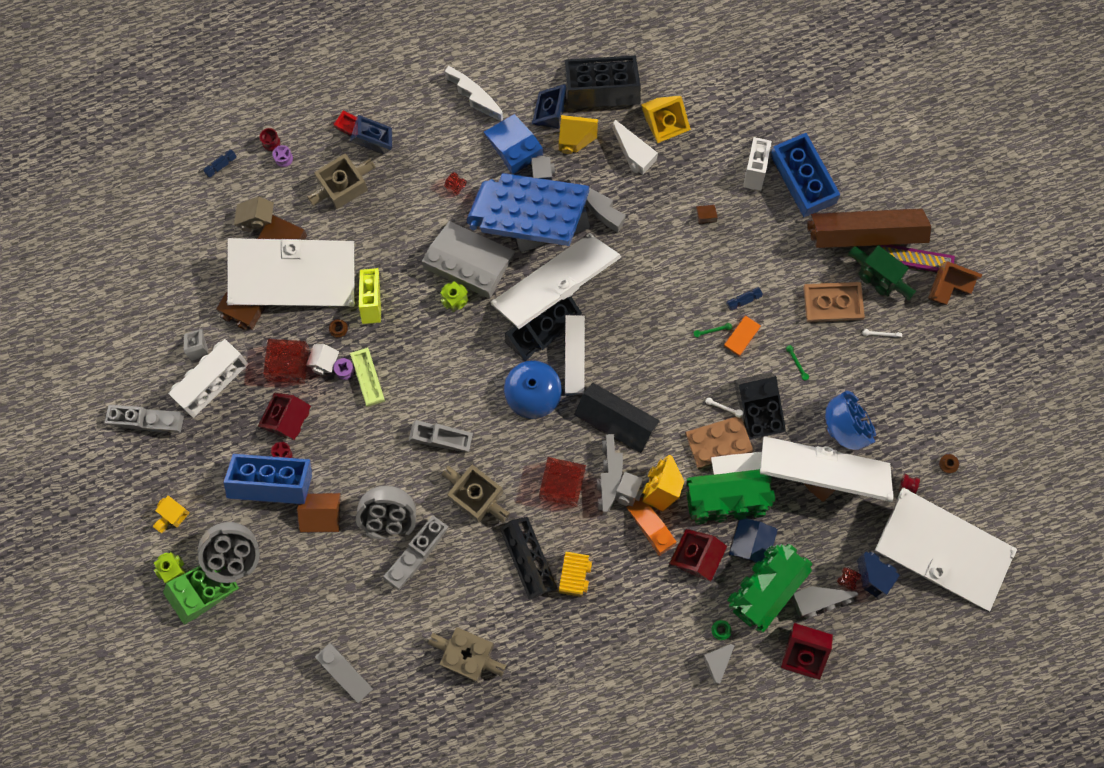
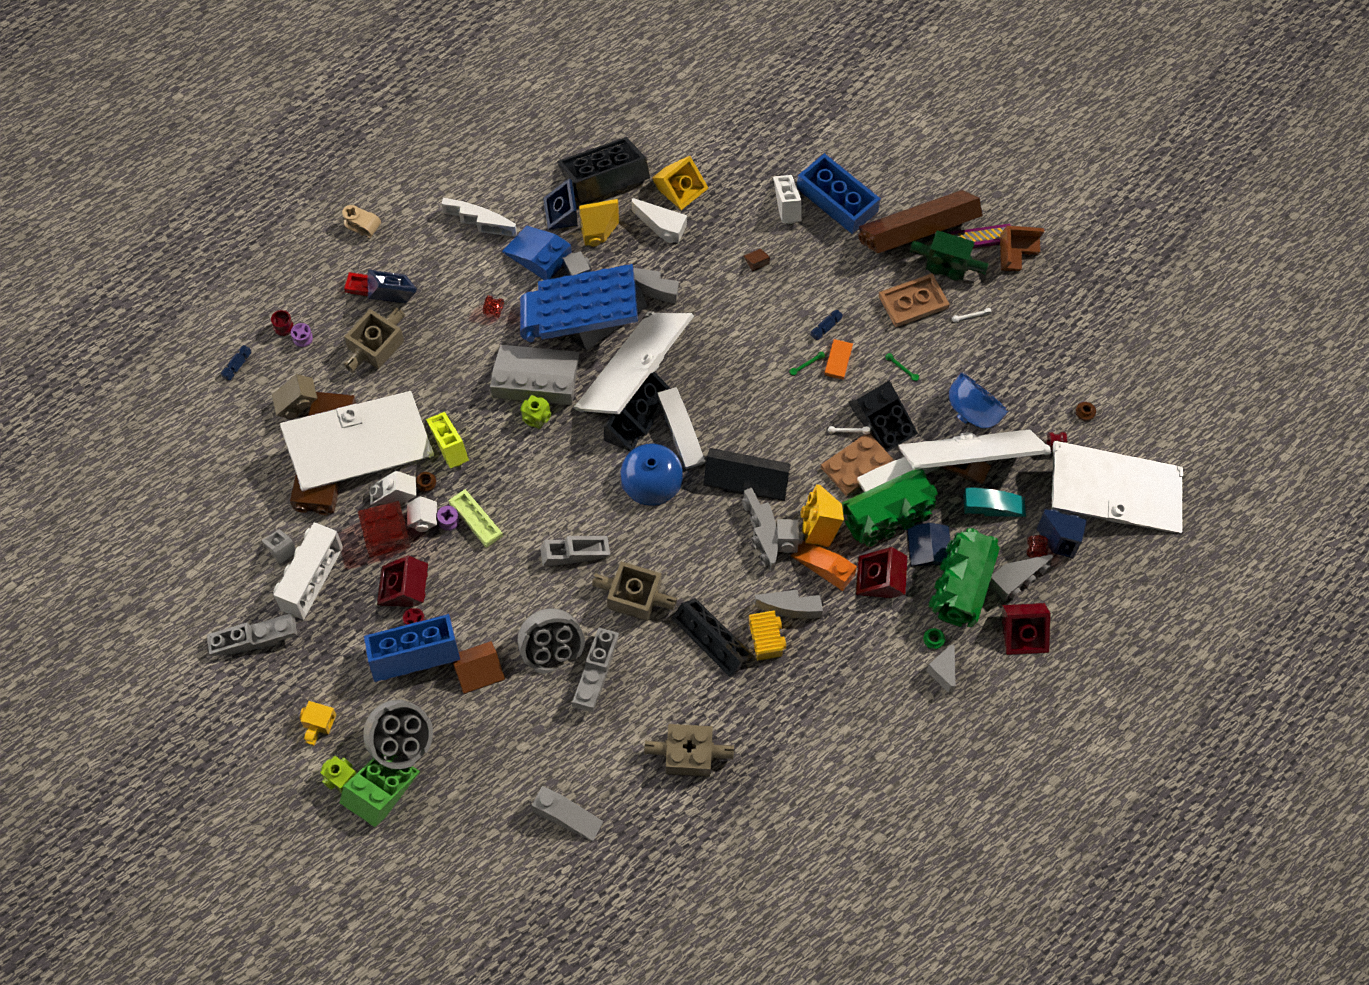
camera: 25 degrees left, 10 degrees down
(307, 326) = (393, 488): none -> white slope
(371, 63) = (361, 221): none -> tan piece
(562, 481) = (718, 551): clear red brick -> none
(606, 554) = (790, 604): none -> light grey slope
(827, 523) = (993, 503): none -> teal slope

